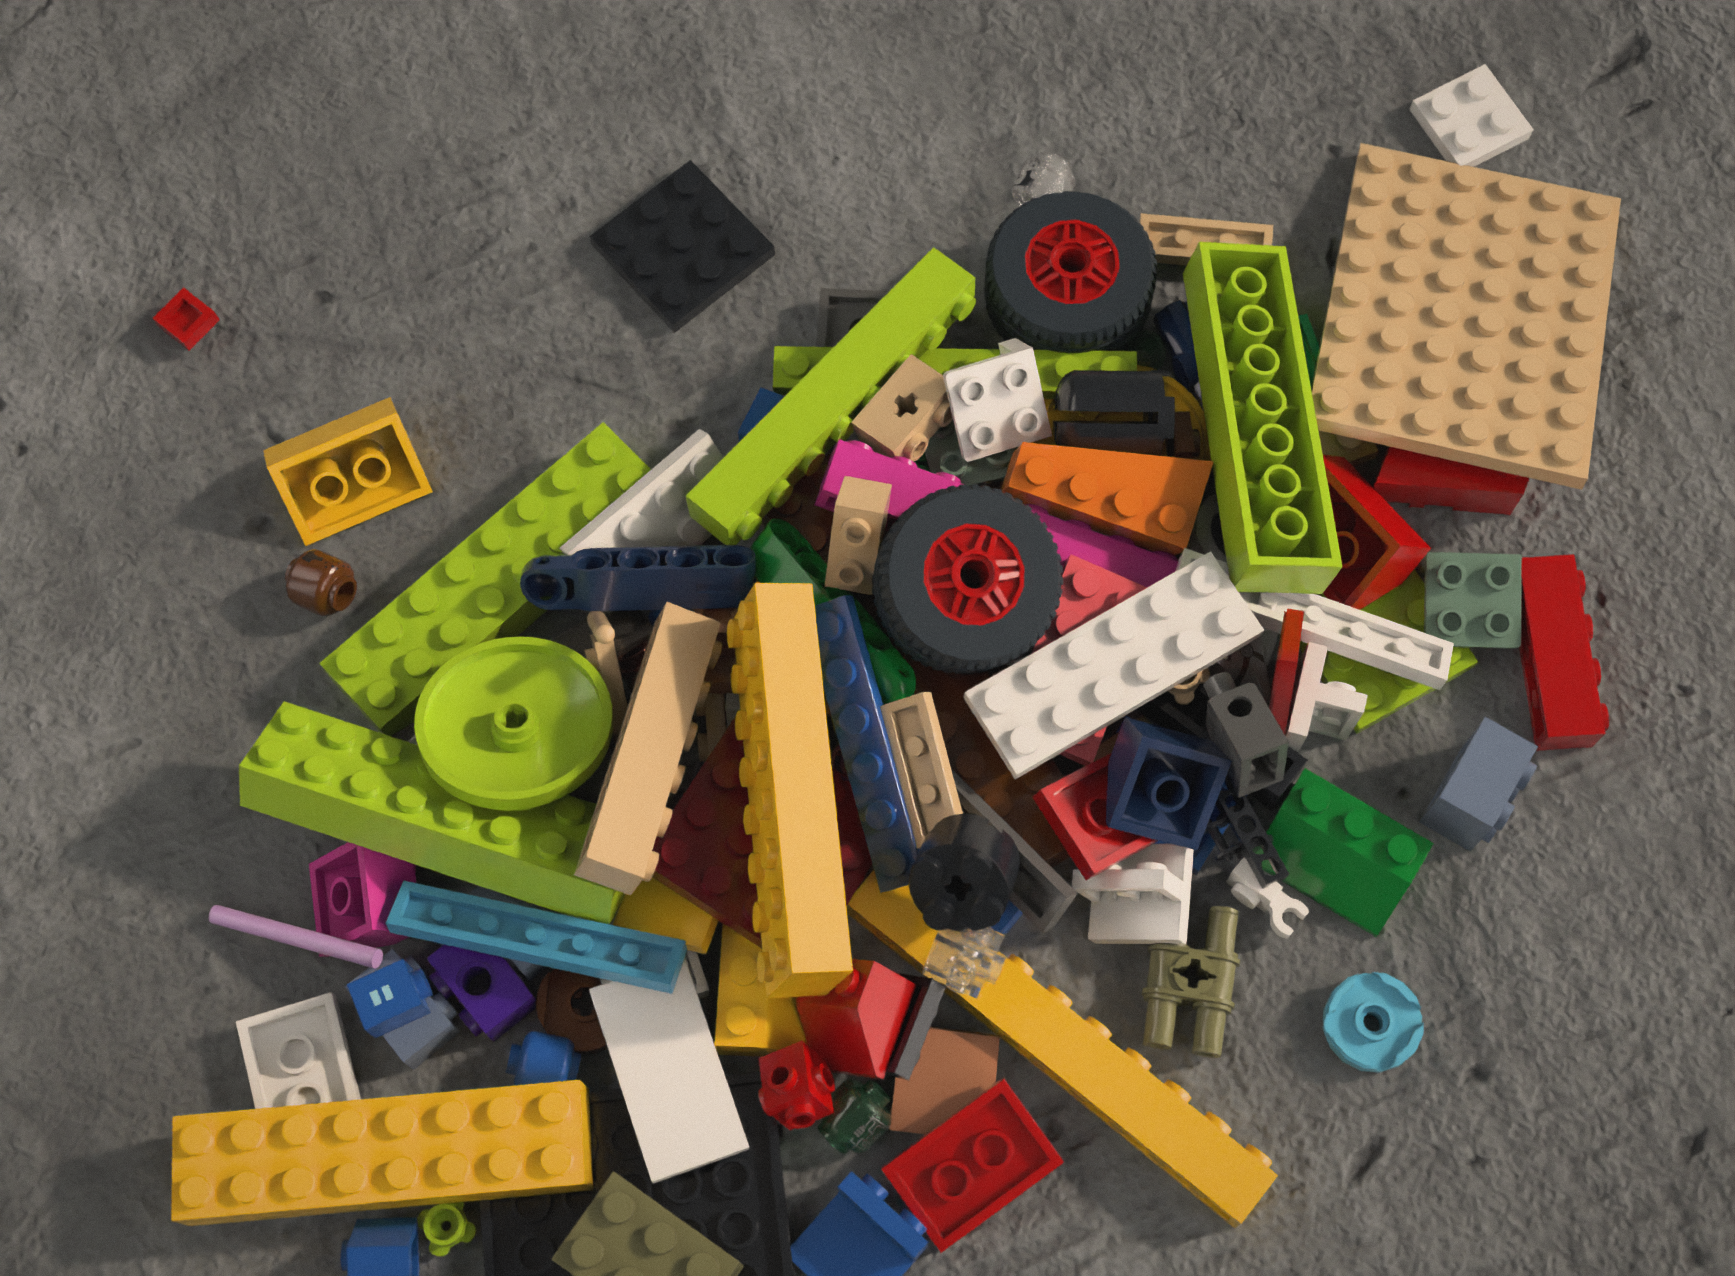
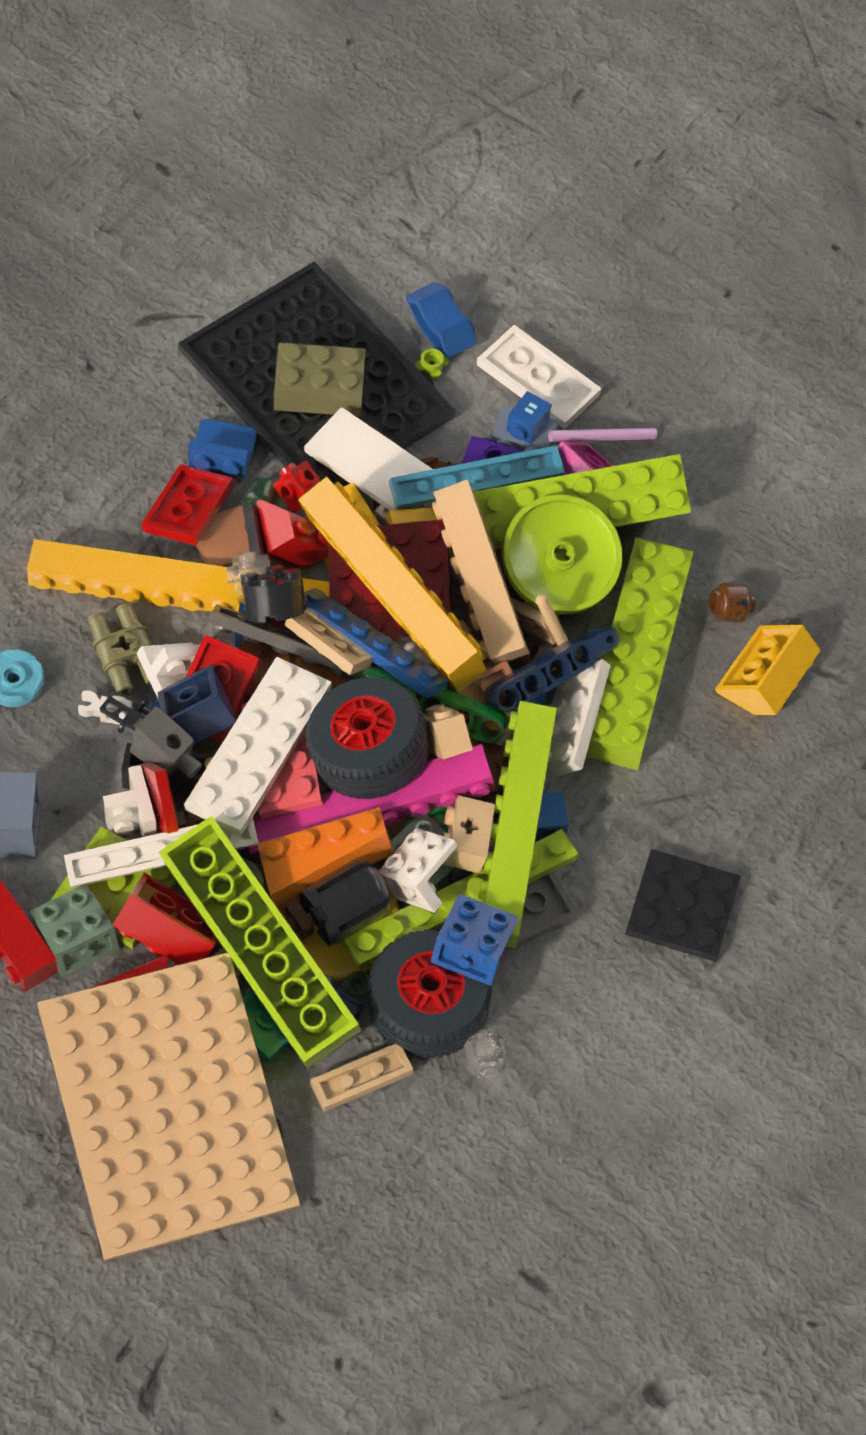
camera: 140 degrees right, 10 degrees down
(381, 1153) = (479, 362): yellow brick -> none
(543, 1059) = (435, 444): blue head -> none
(988, 263) = (473, 939): none -> blue bracket
(1344, 852) = (76, 756): green slope -> none
(1471, 118) = (235, 1270): white plate -> none

